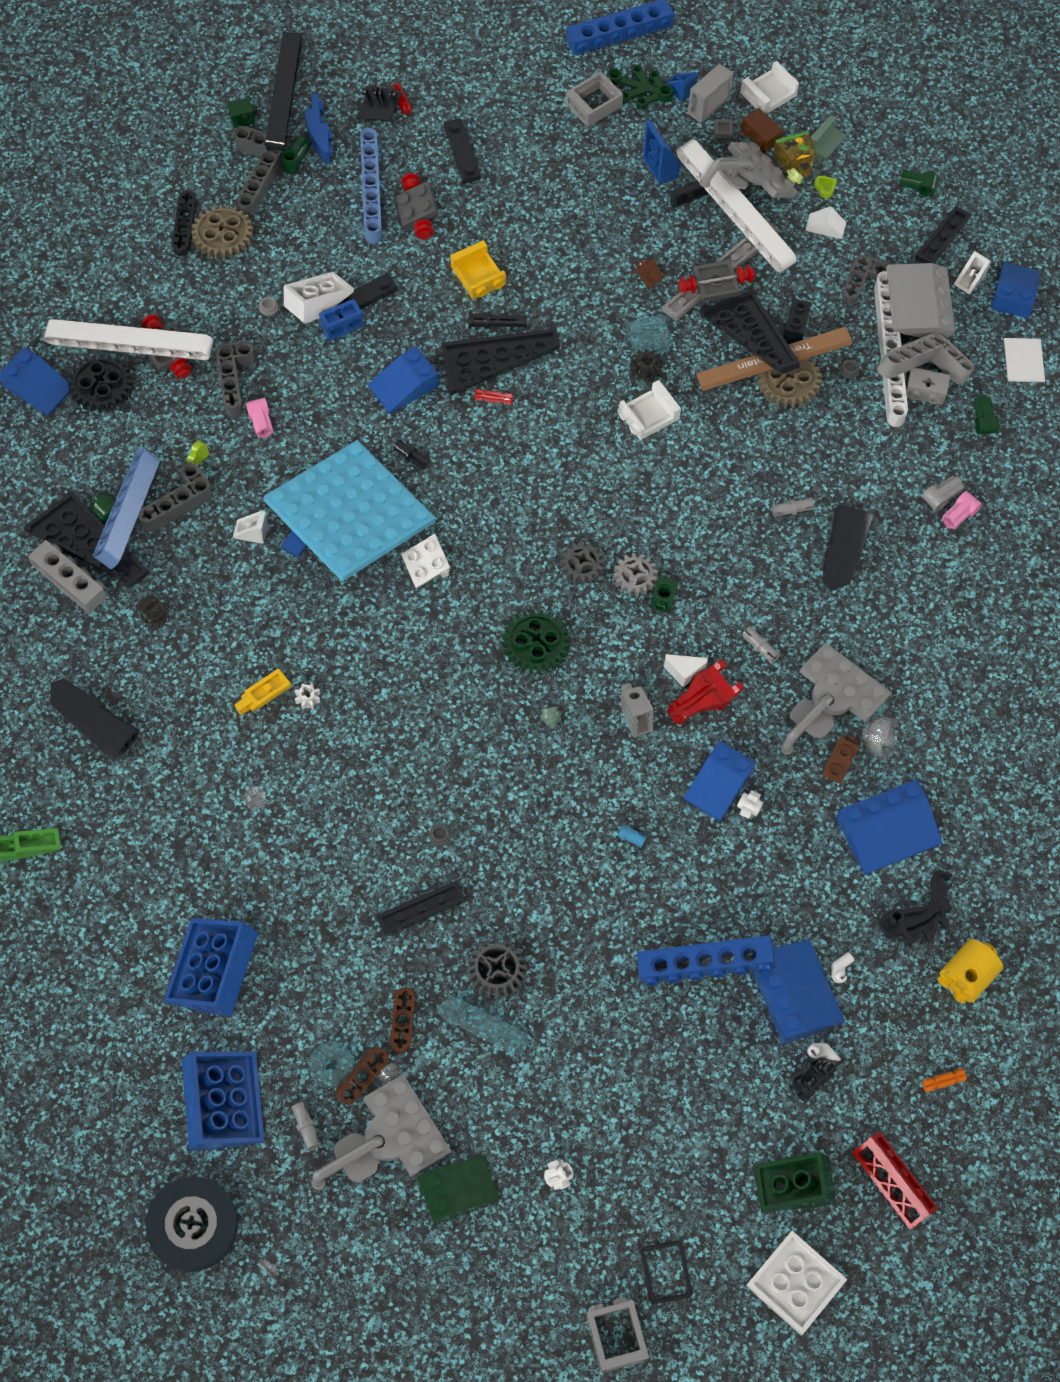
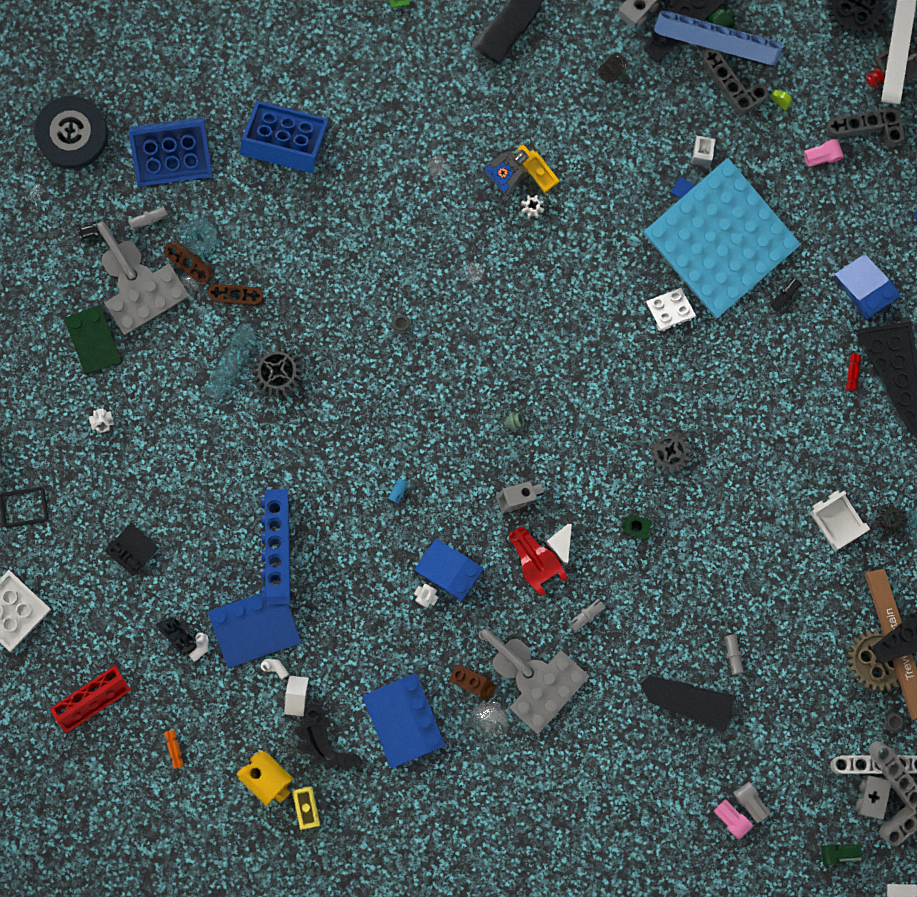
camera: 90 degrees right, 15 degrees up
(265, 719) = (507, 171): none -> torso
(320, 1199) = (87, 231): none -> black bush
(380, 758) = (474, 272): none -> clear tile
(420, 908) = (333, 308): black plate -> none
(548, 629) = (574, 398): dark green gear -> none
(637, 583) = (649, 498): light grey gear -> none
(713, 1135) = (131, 549): none -> black hinge
(795, 1183) = (89, 615): dark green slope -> none
(870, 943) = (296, 695): none -> white slope
(999, 926) = (306, 808): none -> light yellow brick

